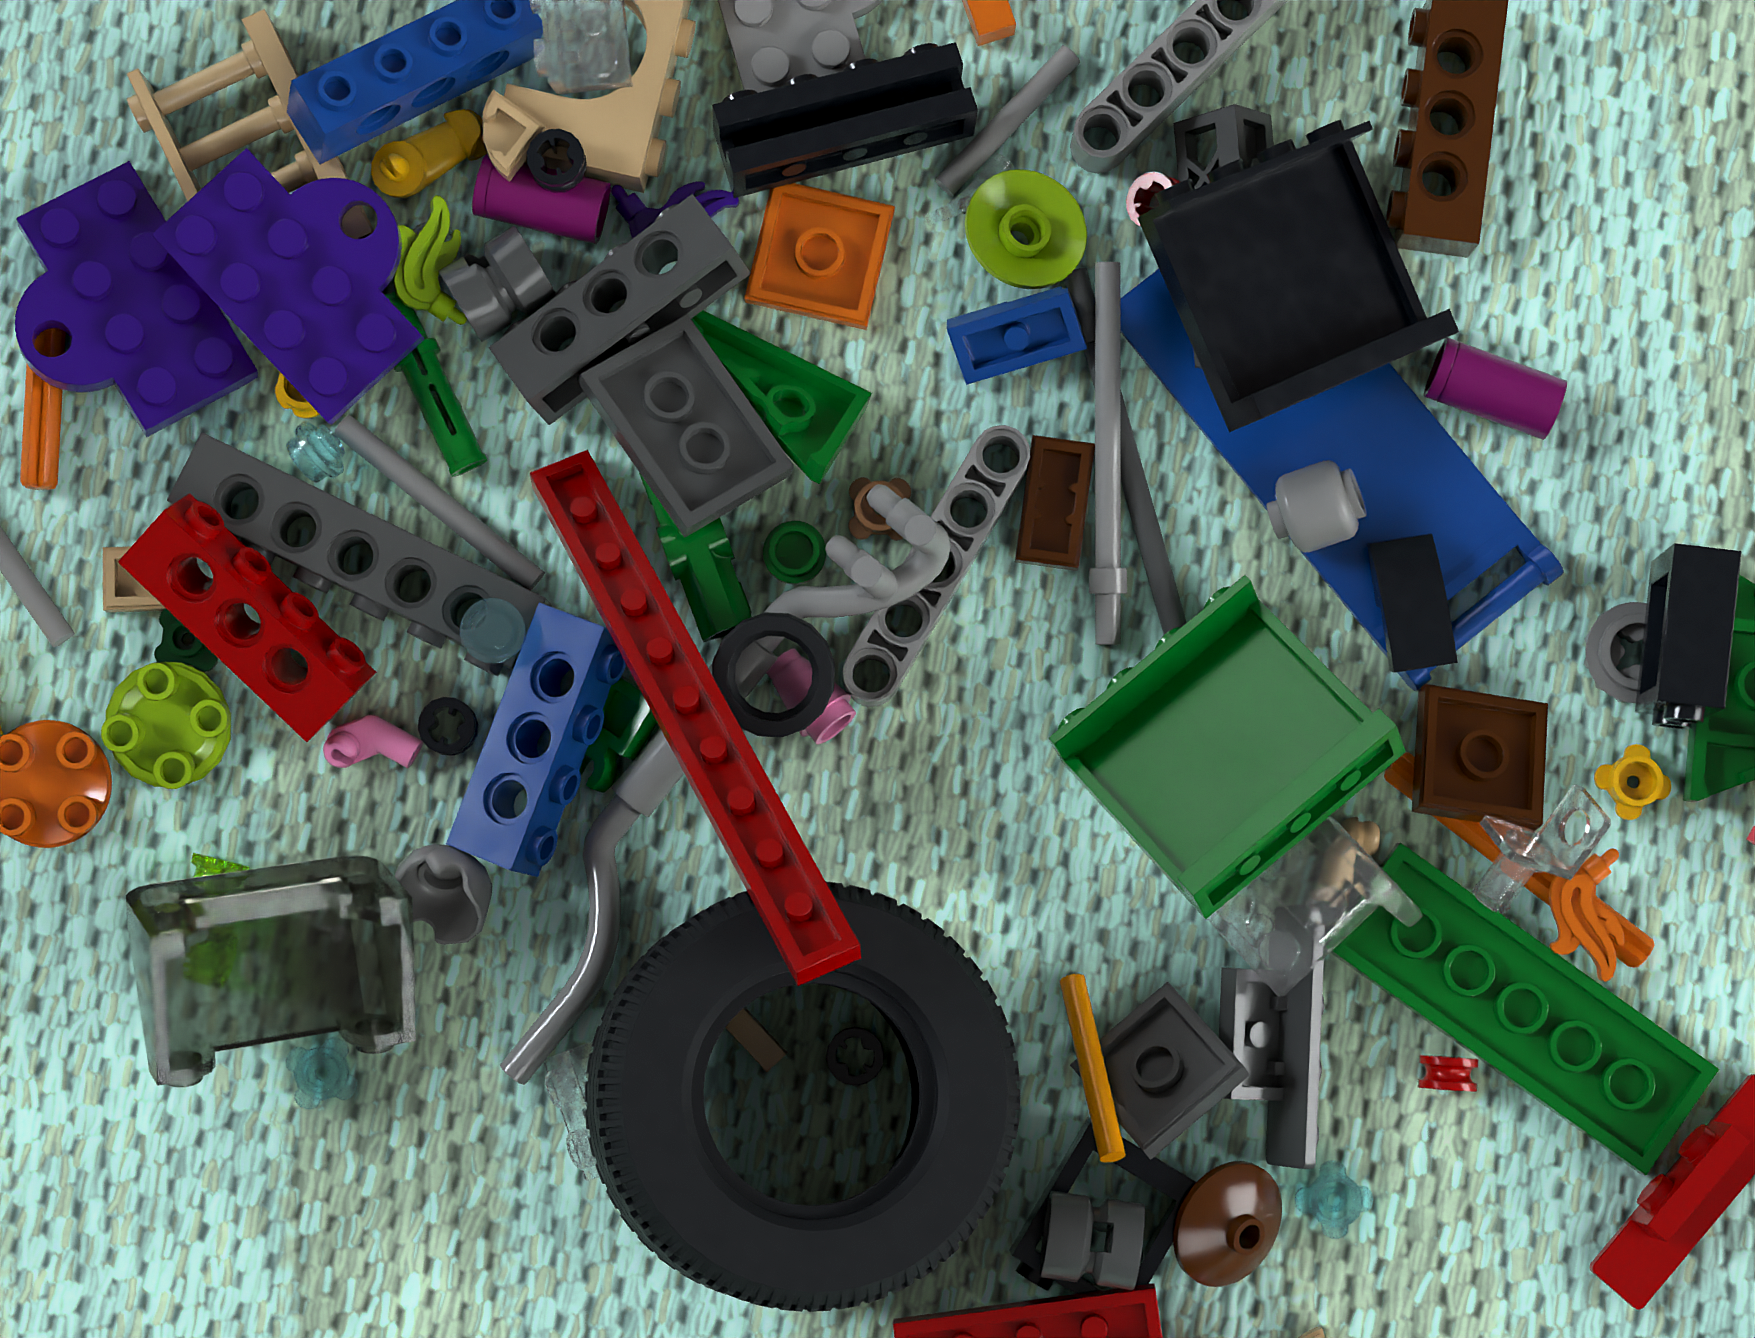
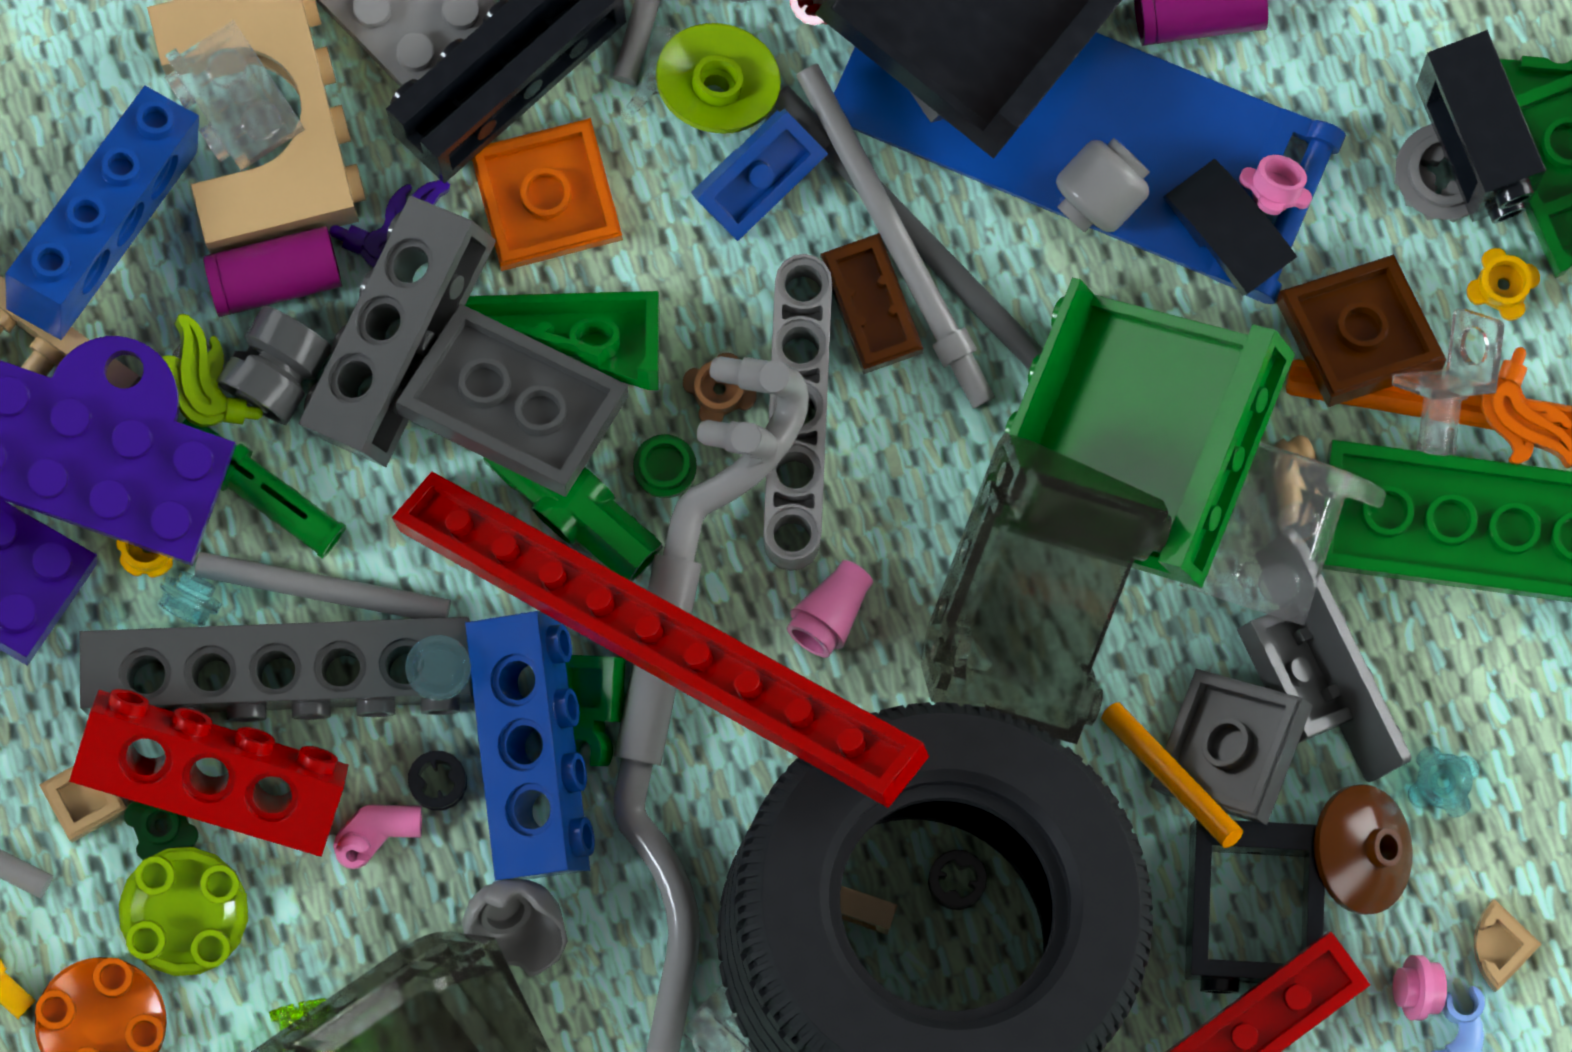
camera: 30 degrees left, 5 degrees down
(416, 162) = (144, 292): yellow piece -> none
(507, 134) = (217, 227): tan tile -> none
(552, 139) = (289, 216): black bush -> none
(792, 680) = (748, 584): bright pink cone -> none
(820, 657) = (730, 530): black tyre -> none
(870, 758) = (828, 612): none -> bright pink cone
(1058, 842) = (1037, 587): none -> clear smoke windscreen
(1069, 1235) = (1231, 922): dark grey wheel -> none
(1448, 1073) = (1482, 618): red bush -> none
(1475, 587) = (1277, 184): none -> bright pink plate

